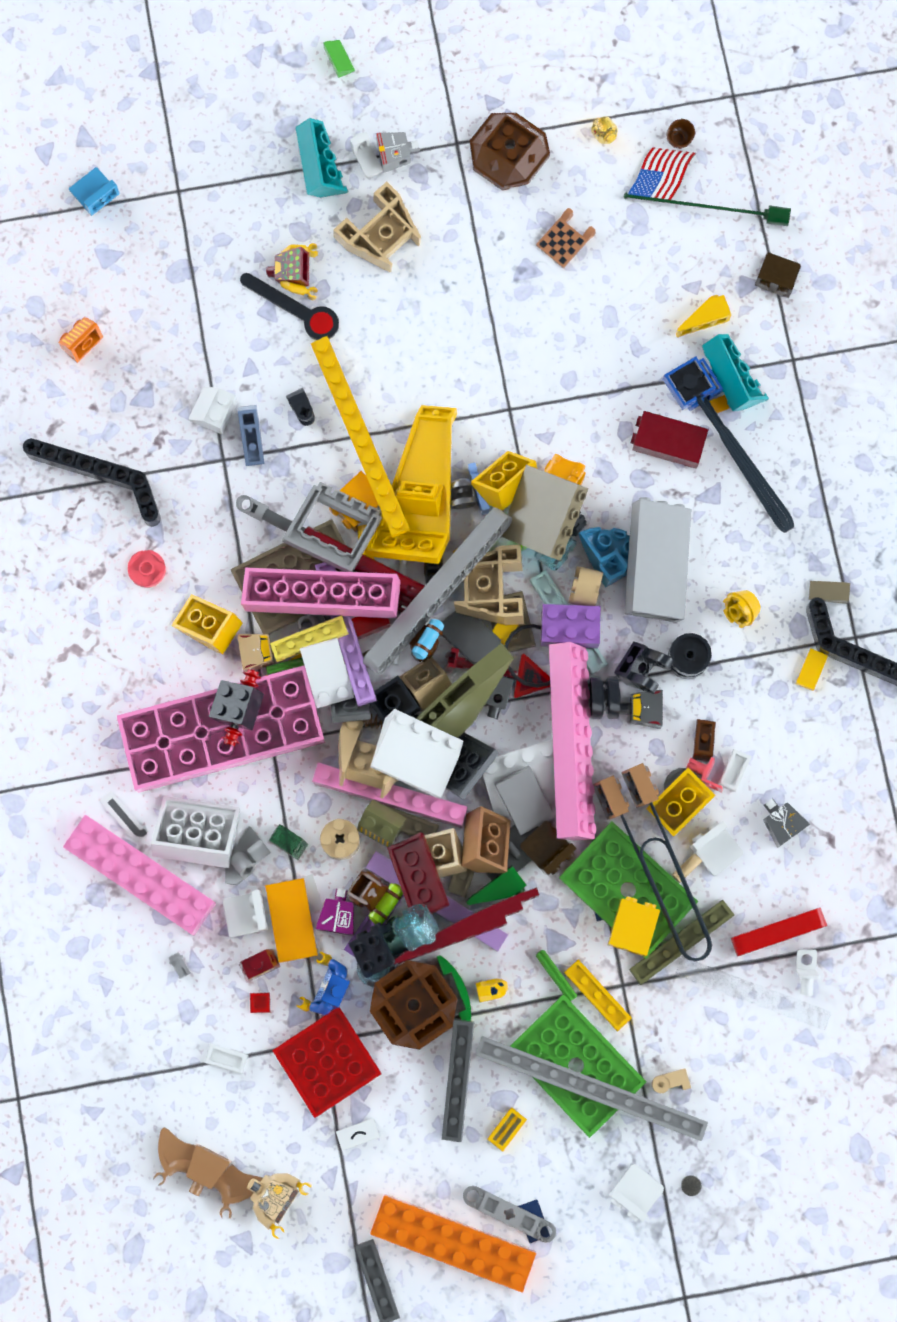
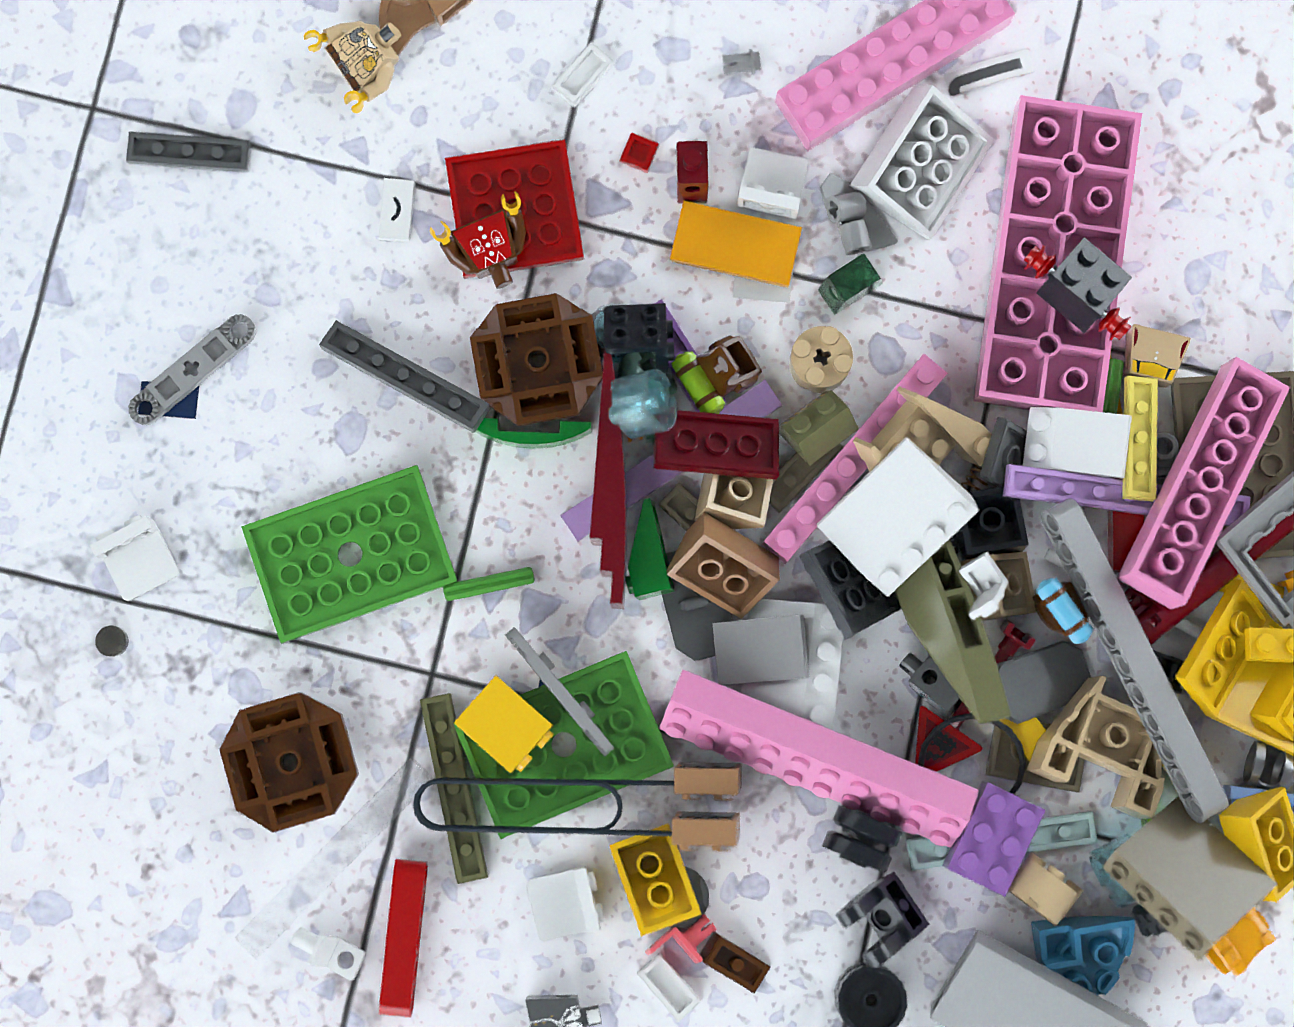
camera: 115 degrees right, 5 degrees up
(207, 623) = (1225, 304): yellow slope -> none
(331, 989) = (613, 256): blue torso -> none
(337, 915) = (713, 310): magenta torso -> none
(358, 1066) = (487, 244): none -> torso
(432, 686) = (986, 582): none -> white bracket
(453, 1243) = (189, 274): orange brick -> none
(491, 989) = (510, 481): yellow rock -> none
(517, 1115) = (320, 441): yellow tile -> none
(547, 849) = (673, 649): dark brown bracket -> none
(590, 920) = (579, 712): none -> light grey piece
(591, 1088) = (305, 559): light grey plate -> none
(597, 995) = (434, 631): yellow tile -> none
(645, 709) = (819, 893): dark grey torso -> none
(669, 1080) = (267, 677): tan leg -> none
(687, 867) = (557, 848): tan hinge -> none
(734, 1042) = (255, 756): none -> reddish brown piece

